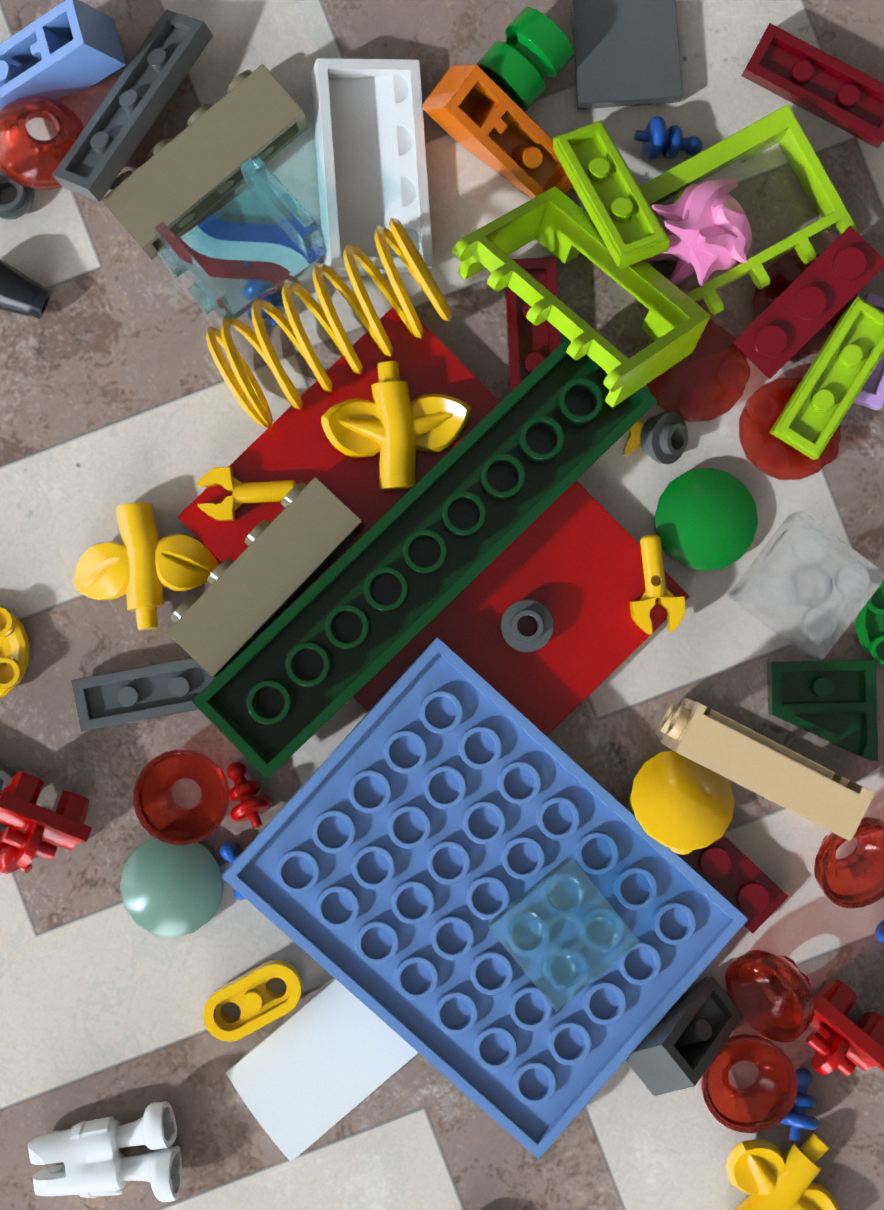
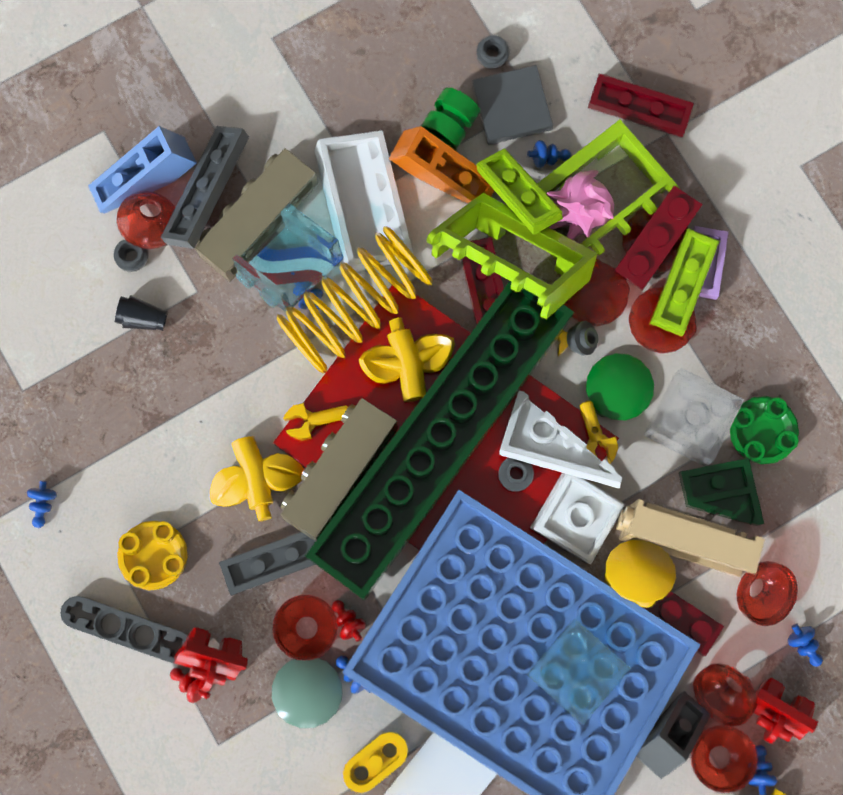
camera: 15 degrees left, 10 degrees down
(573, 585) = (543, 442): none -> white wing
(606, 701) = (577, 516): none -> white tile

